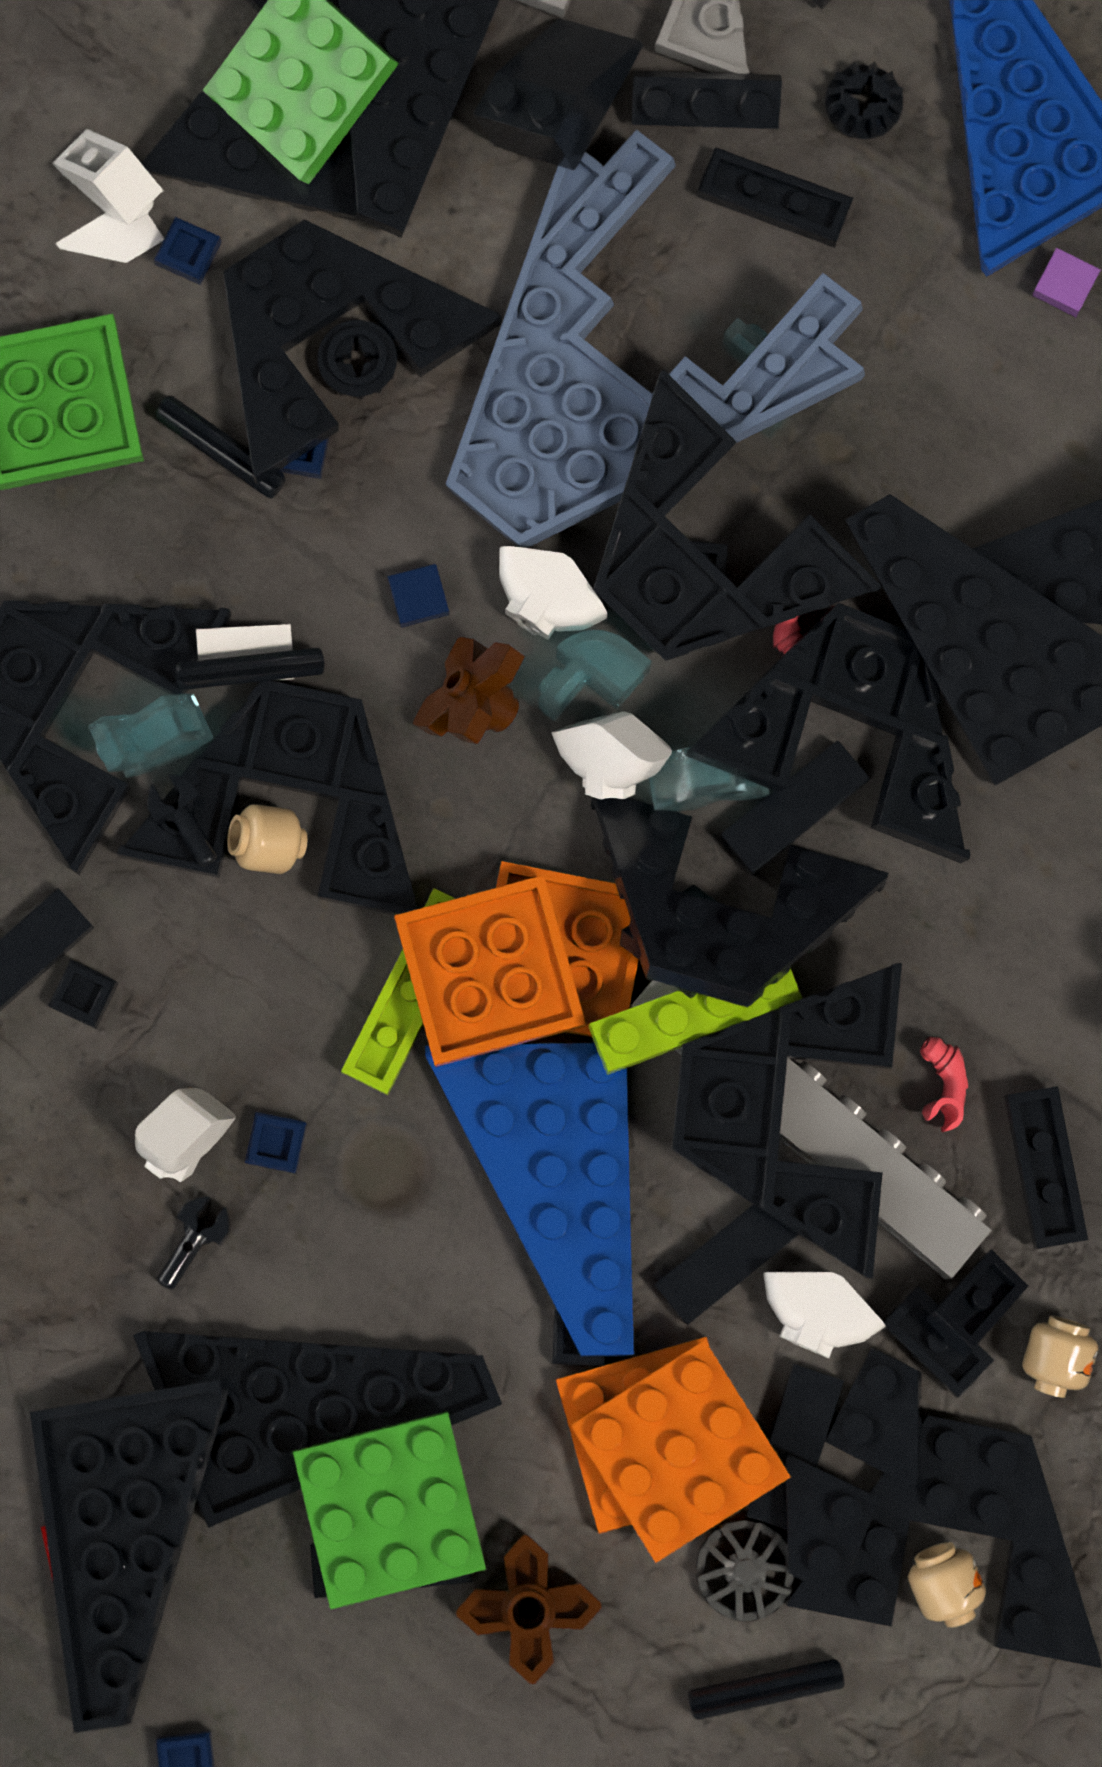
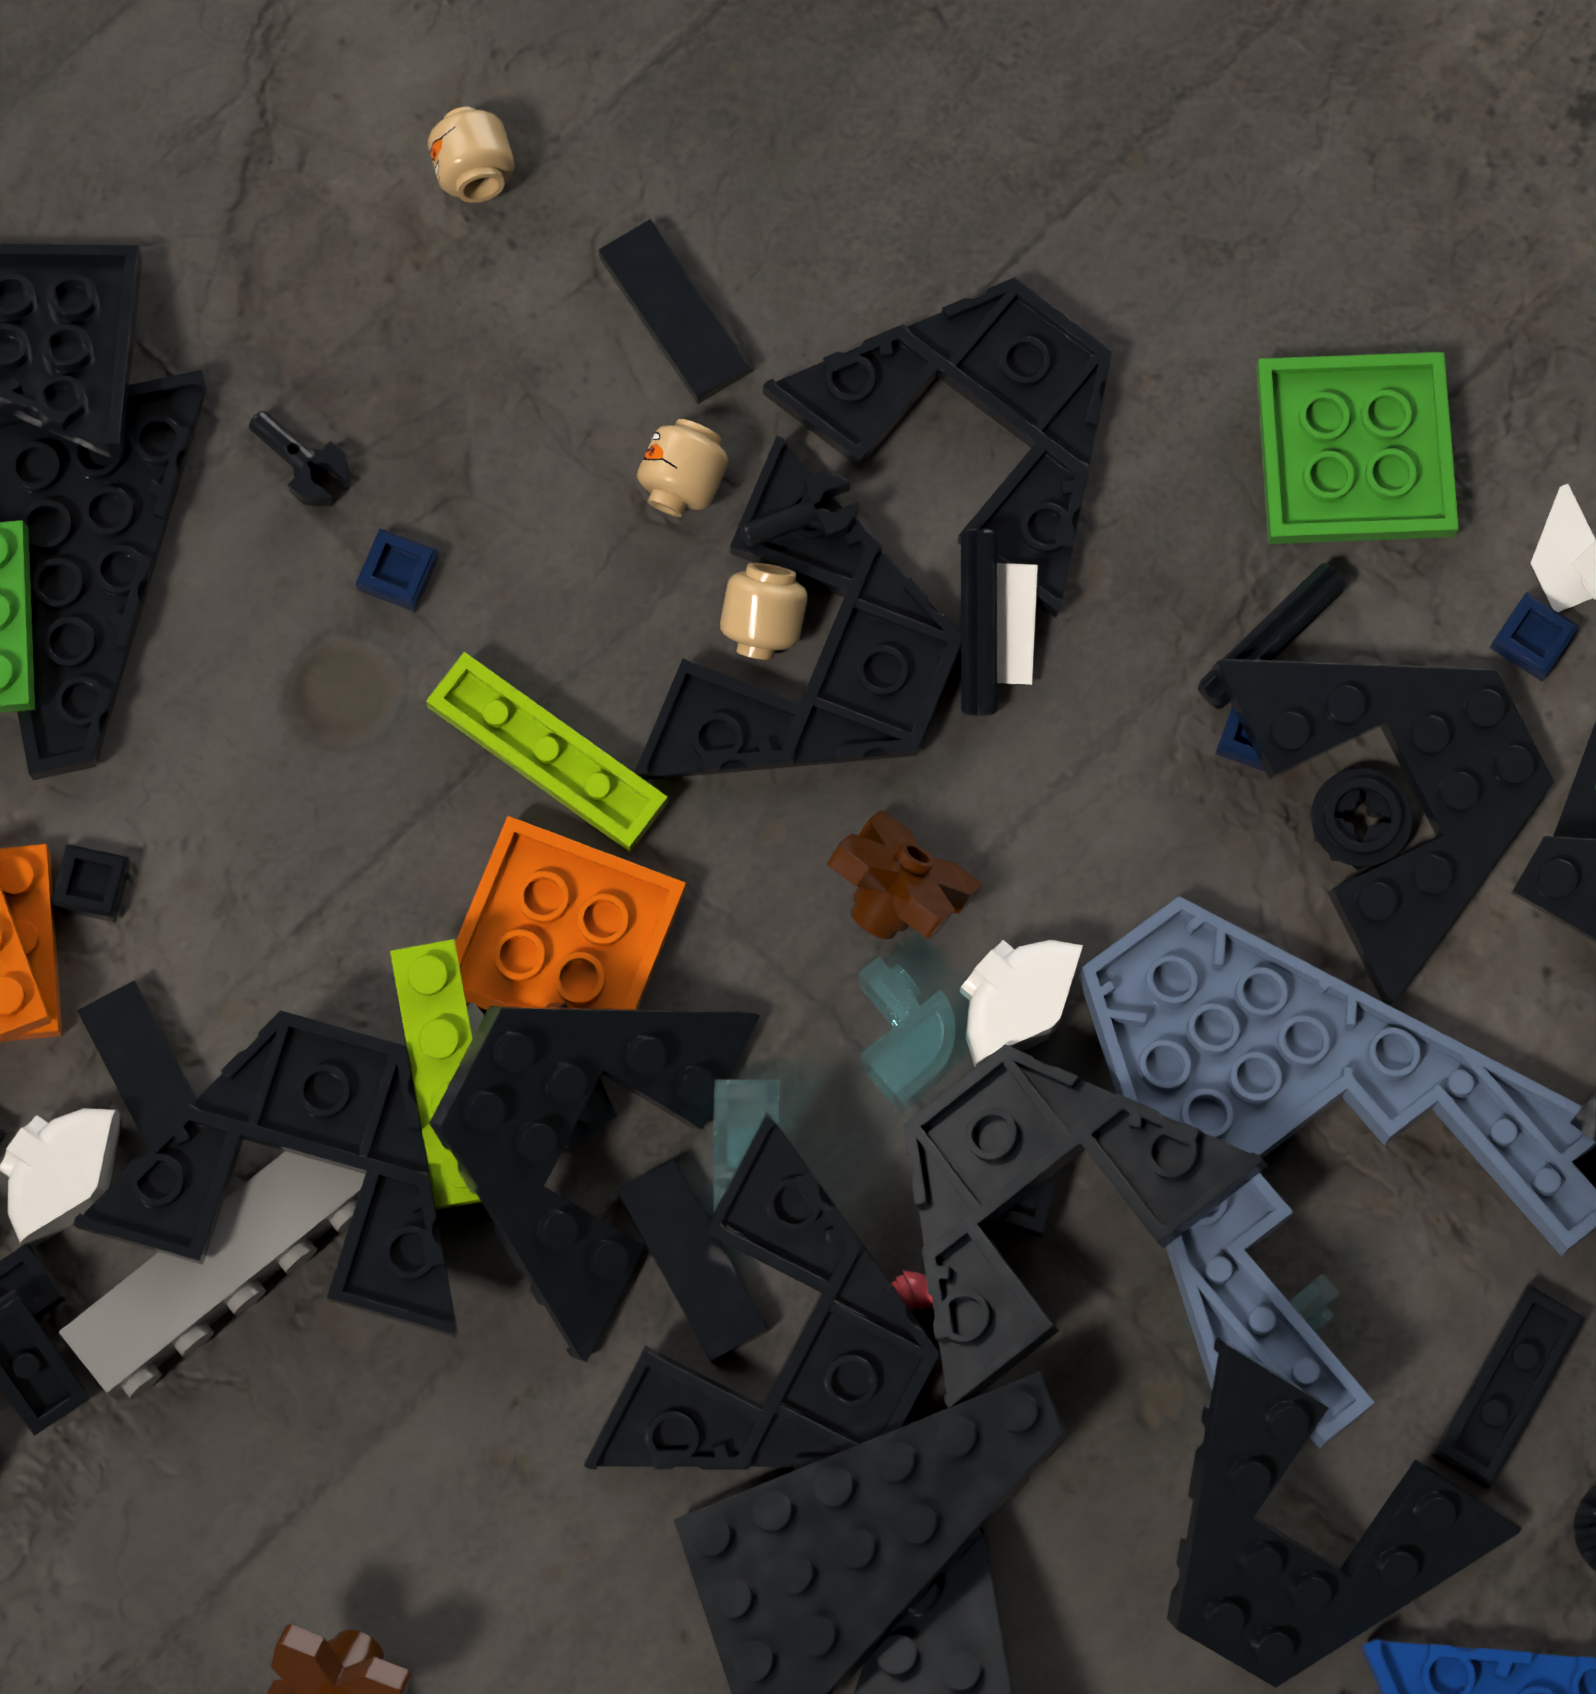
camera: 100 degrees right, 5 degrees down
(83, 994) = (618, 378): black tile -> none
(152, 736) = (913, 491): clear light blue brick -> none
(156, 924) = (682, 467): none -> tan head
(181, 1132) = (426, 457): white piece -> none
(418, 595) = (1043, 844): dark blue tile -> none
(489, 971) = (547, 840): orange plate -> none
(559, 1161) = (292, 891): blue wing -> none
(612, 753) = (796, 1035): white piece -> none
(951, 1068) = (325, 1393): coral piece -> none
(971, 337) = (1268, 1596): none -> black wing
(1046, 1167) = (175, 1487): black plate -> none

